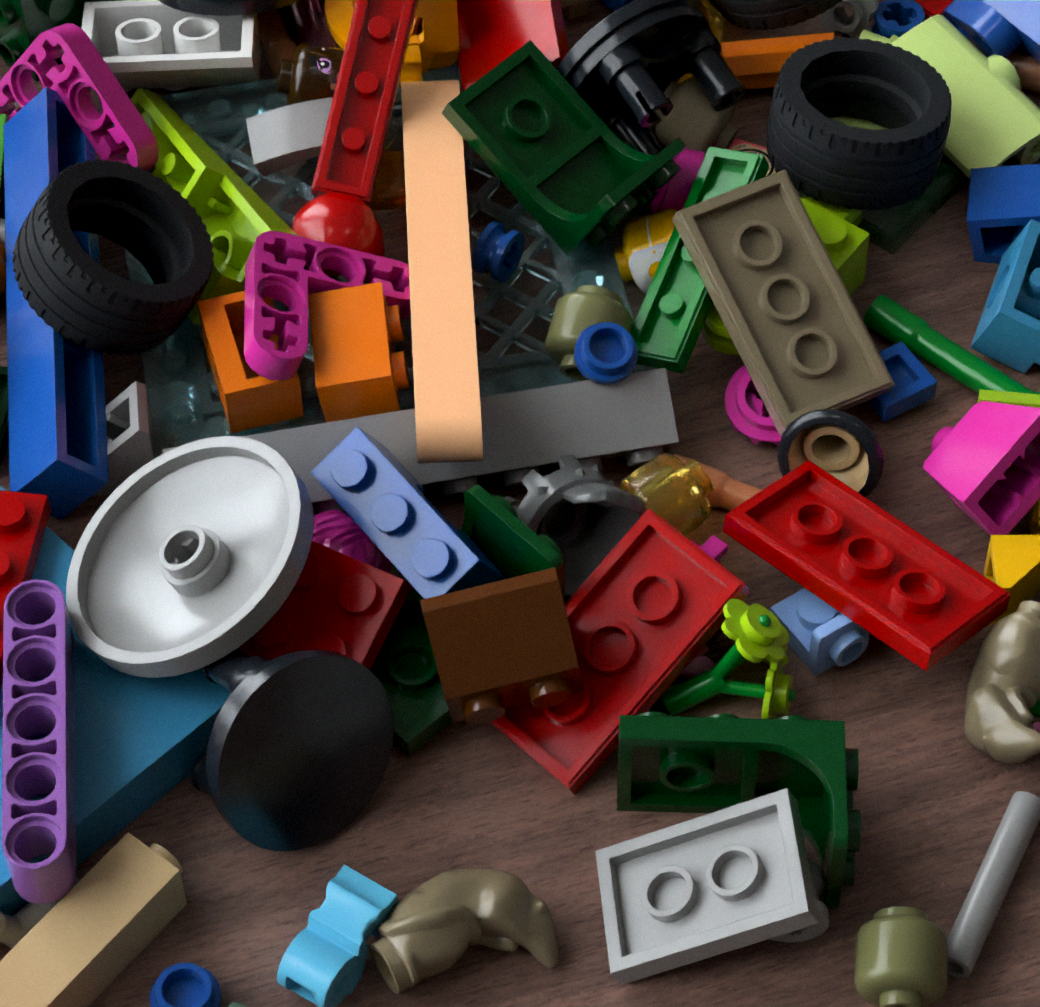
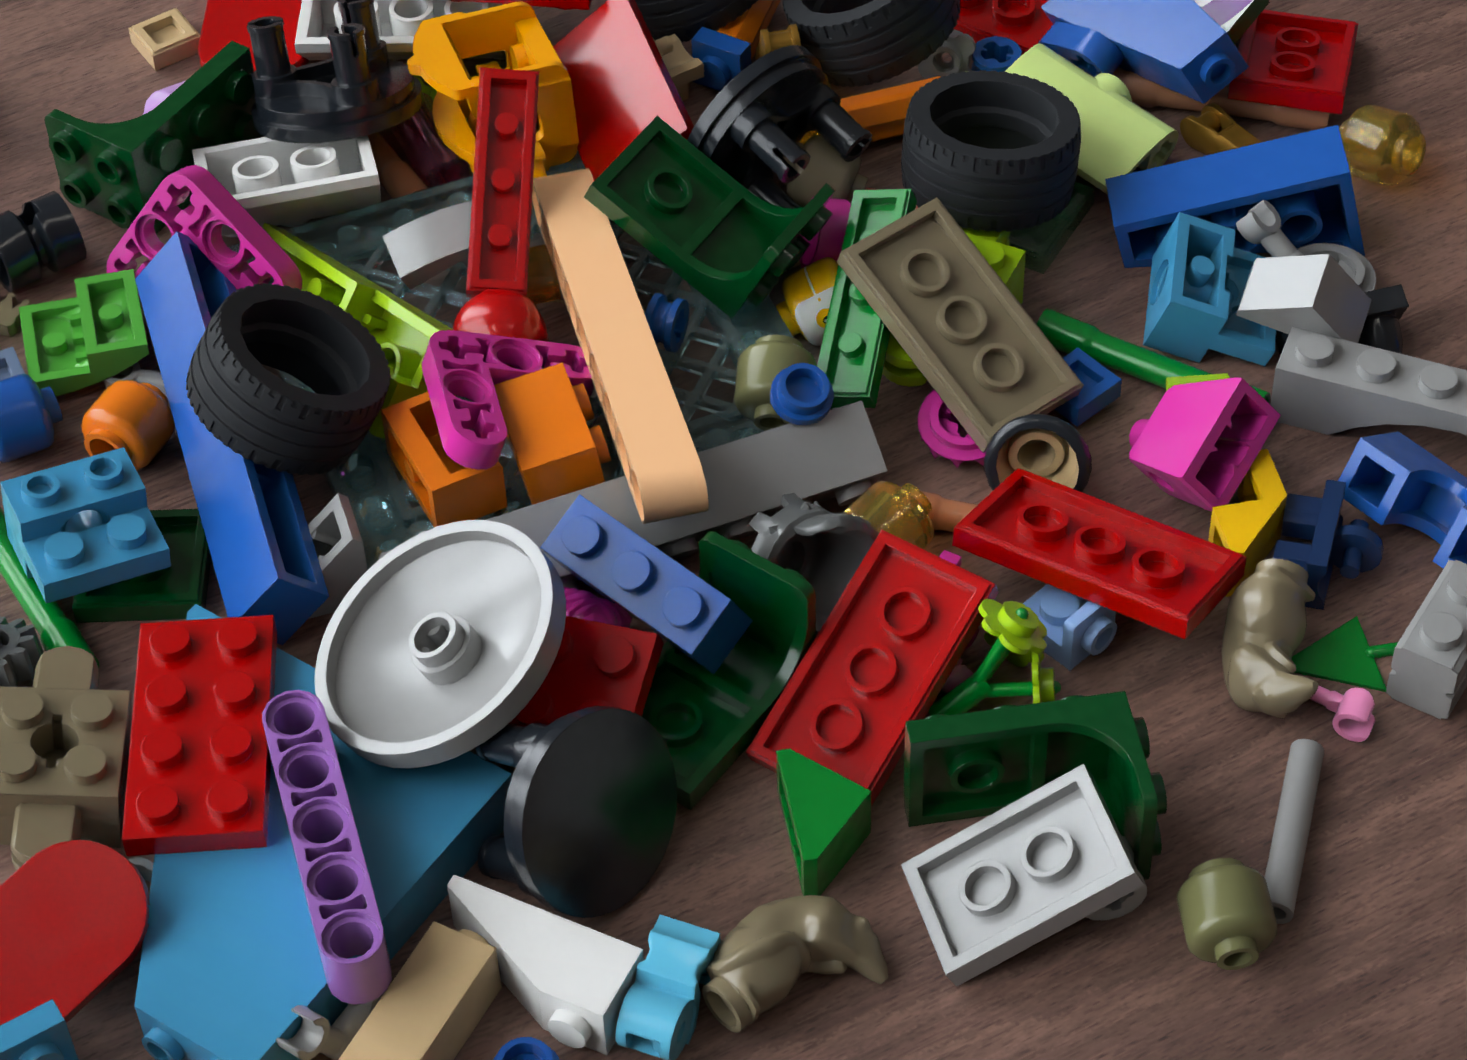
camera: 10 degrees left, 5 degrees down
(239, 897) = (554, 967): none -> white slope
(310, 73) = (439, 183): dark brown head -> none
(503, 646) = (772, 679): reddish brown slope -> none
(532, 792) = (823, 818): none -> green slope

